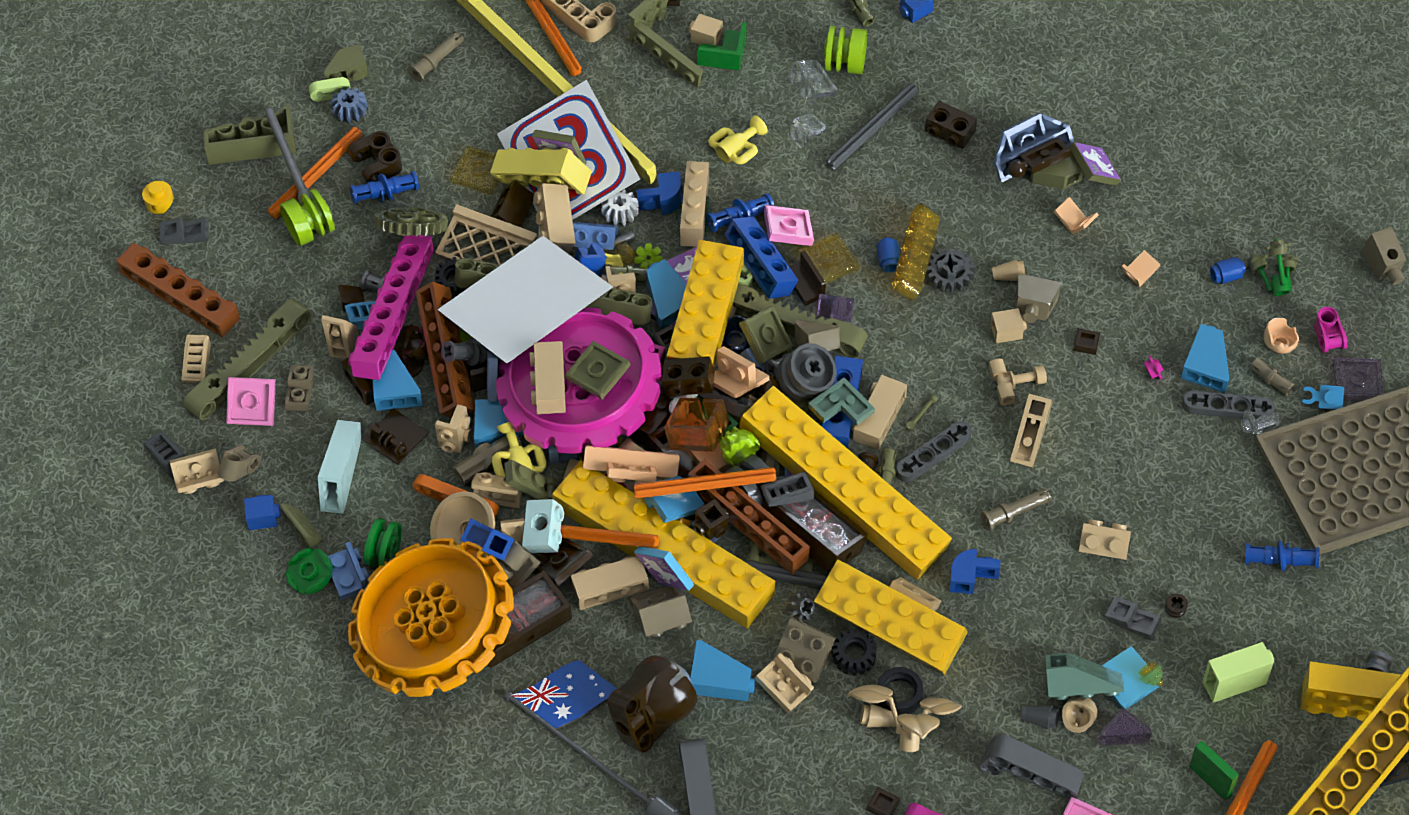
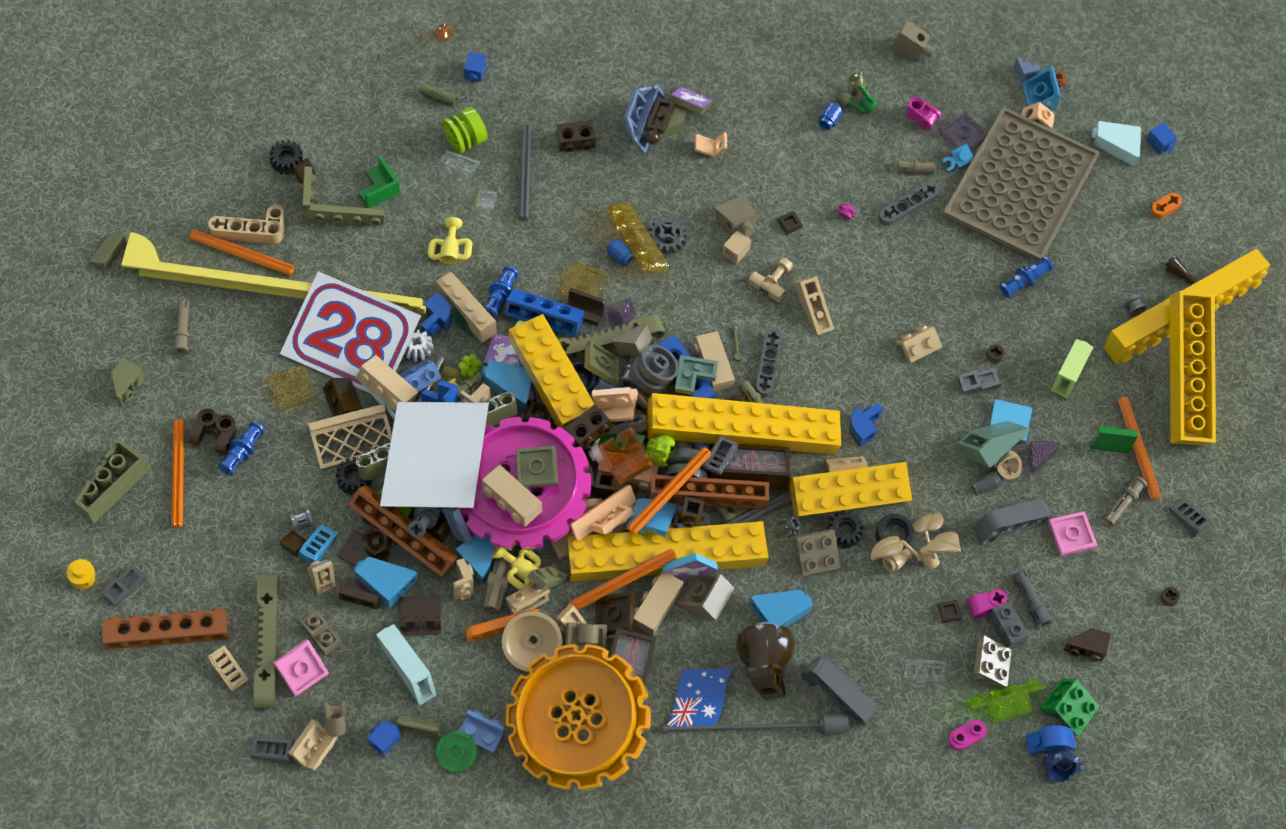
camera: 50 degrees left, 5 degrees up
(286, 153) = (190, 495): flat silver piece -> none
(310, 215) = (211, 509): lime wheel -> none
(324, 89) = (129, 405): yellowish green beam -> none
(349, 104) = (155, 407): sand blue gear -> none
(382, 542) = (493, 694): green wheel -> none
(391, 307) = (363, 581): dark pink brick -> none
(410, 221) = (290, 458): olive gear -> none
(489, 539) = (574, 634): blue brick -> none
(537, 515) = (578, 590): light aqua brick -> none
(541, 167) = (342, 356): light yellow wedge -> none
(557, 141) = (348, 333): olive tile -> none
(706, 30) = (354, 180): tan brick -> none
(784, 683) = (826, 582): tan bracket -> none
(788, 225) = (540, 278): bright pink tile -> none
(1005, 512) = (848, 370): dark tan pin -> none
(1008, 271) = (704, 209): tan cone -> none
(1141, 268) = (779, 151): light nougat bracket -> none
(1151, 674) = (1024, 407): plate -> none
(1207, 360) = (872, 183): dark azure slope -> none
(1260, 425) = (937, 206): clear bracket -> none
(1280, 336) = (900, 137): light nougat hair -> none

